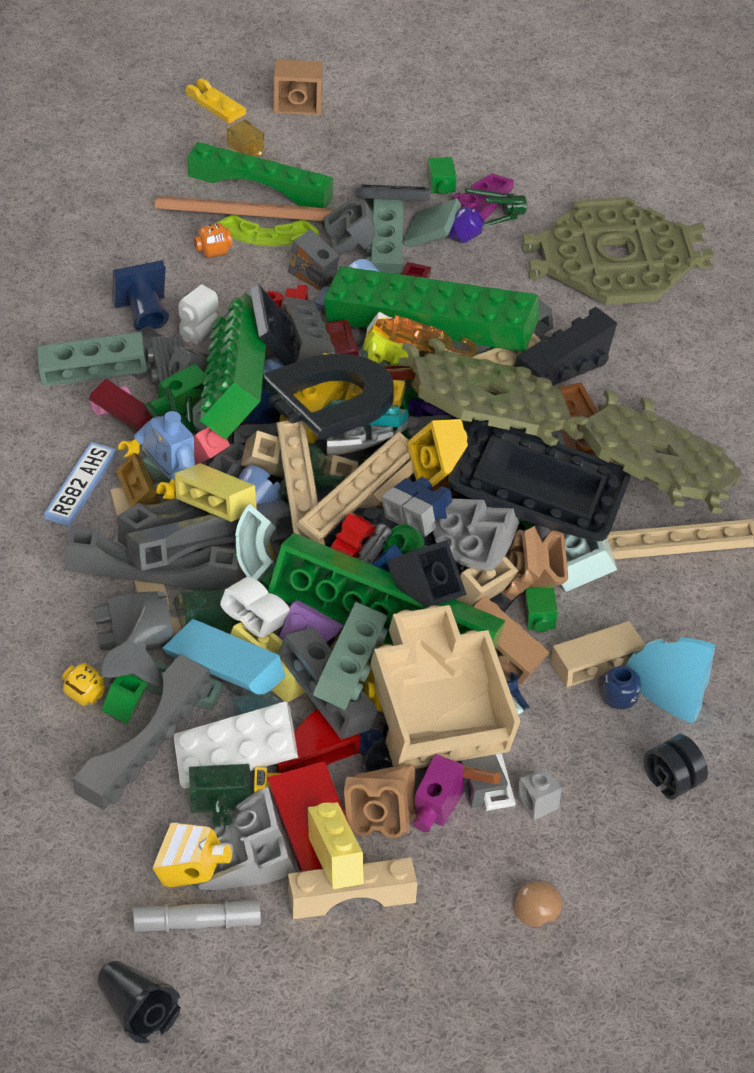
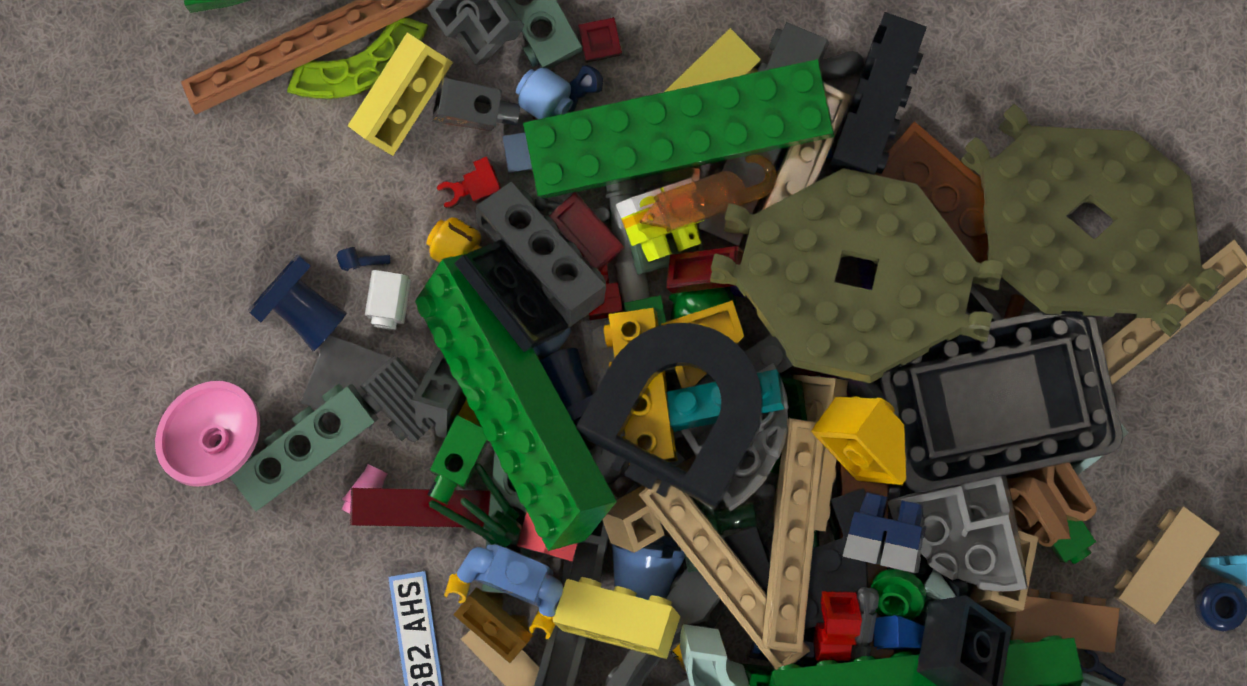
camera: 30 degrees left, 40 degrees up
(41, 330) = (195, 424): none -> bright pink dish
(213, 240) = (311, 134): orange head -> none
(275, 240) = (400, 94): none -> light yellow brick

